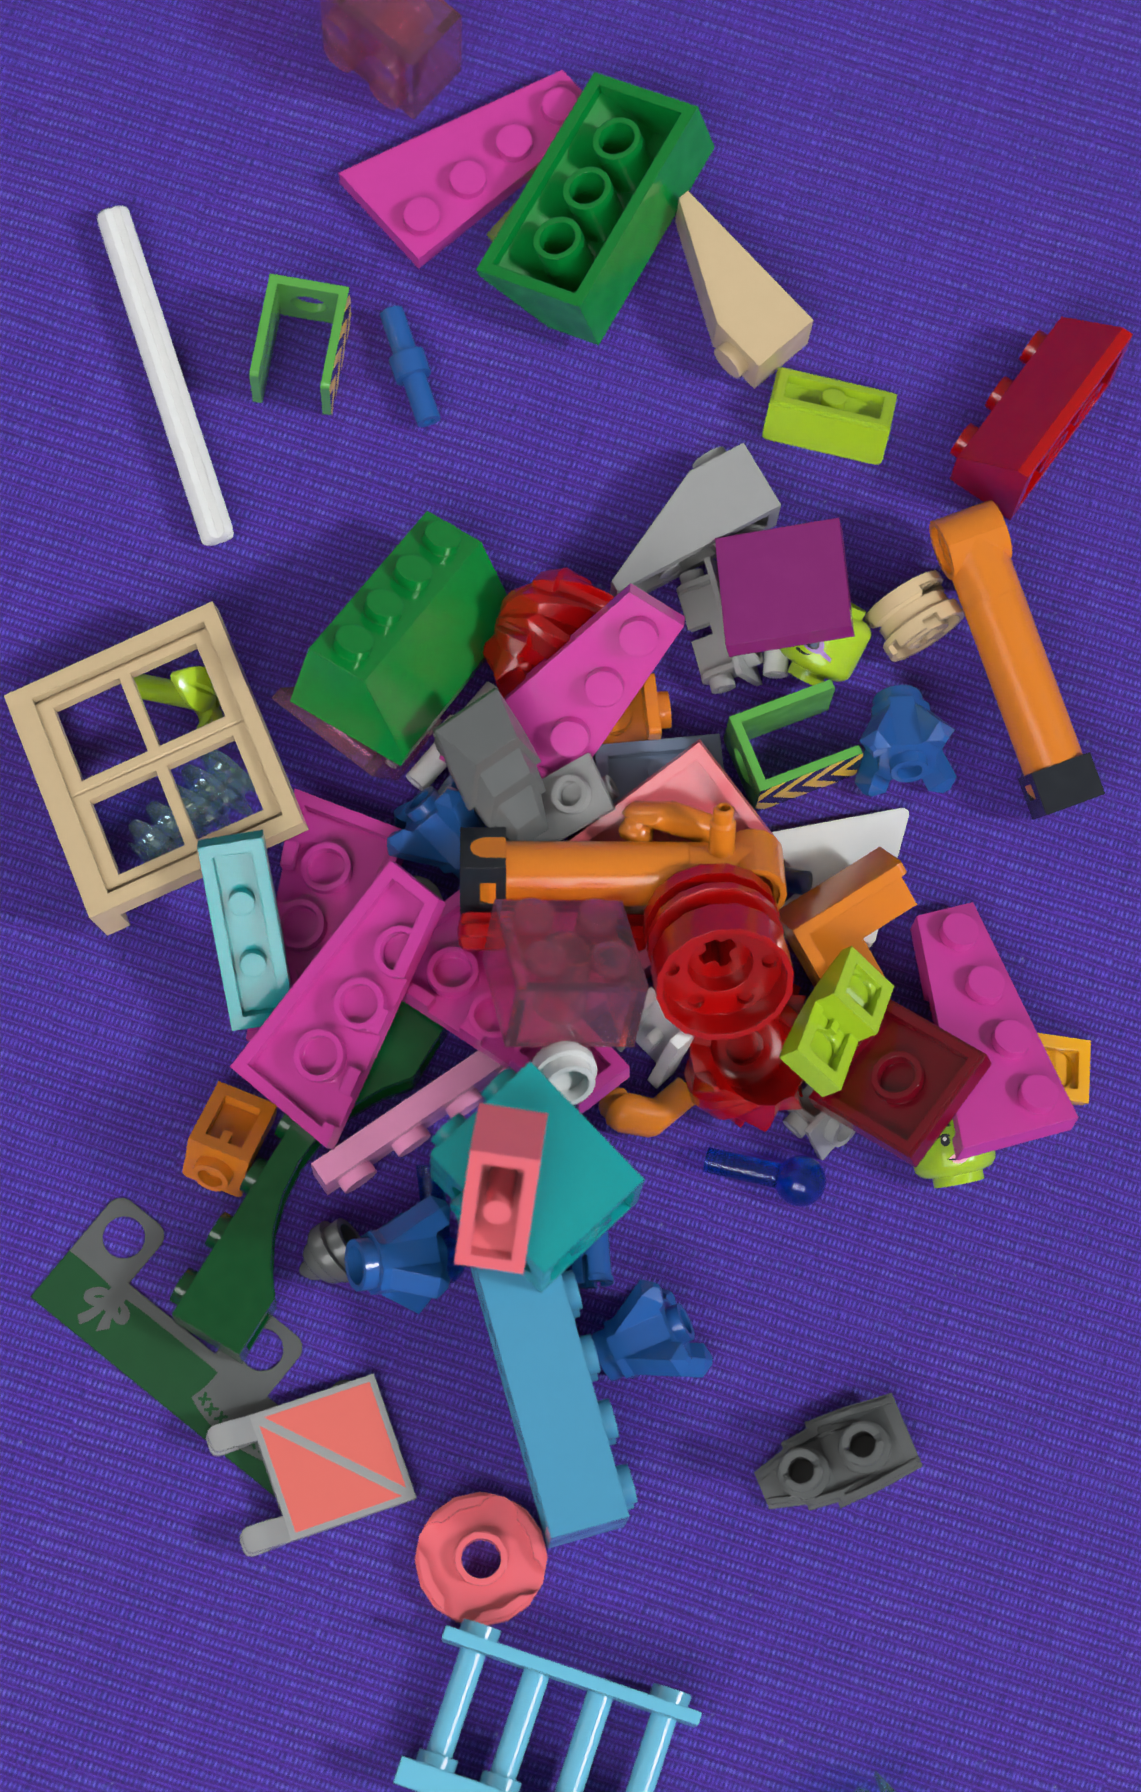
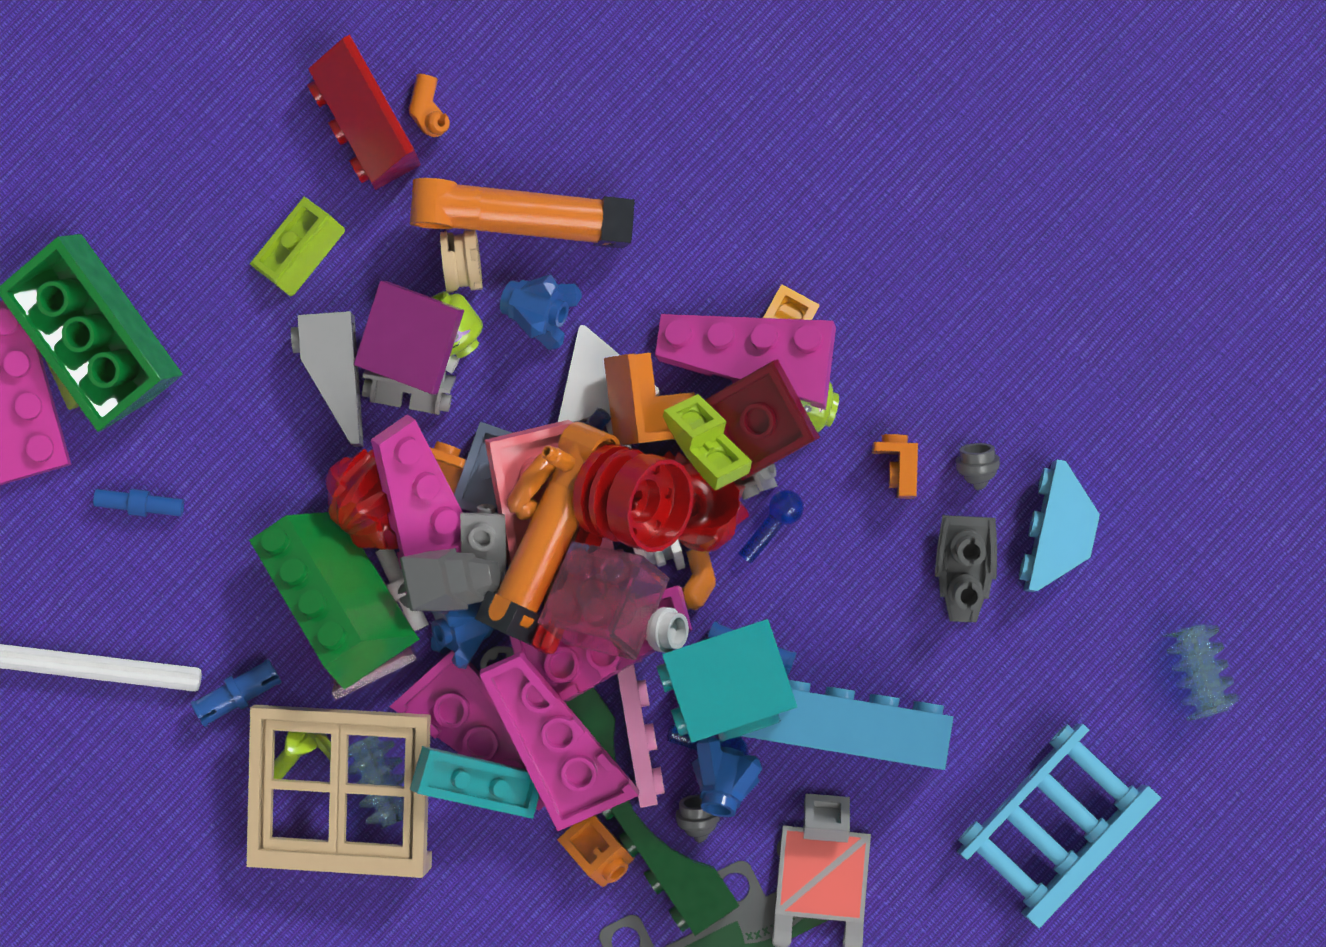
camera: 60 degrees left, 10 degrees up
(223, 588) = (236, 692): none -> blue pin
(282, 300) = (65, 550): bright green piece -> none
(410, 1424) = (826, 818): none -> light grey plate
(486, 1519) = (906, 793): coral tile -> none
(500, 1188) = (736, 710): coral slope -> none
(650, 1338) = (843, 646): blue rock -> none
(744, 308) = (202, 269): tan slope -> none
(772, 716) = (508, 414): bright green piece -> none
(923, 1314) = (904, 471): none -> orange bracket
(950, 1564) = (1061, 530): none -> medium azure slope
(982, 1410) = (977, 464): none -> dark grey plate
(1082, 489) = (424, 110): none -> orange arm

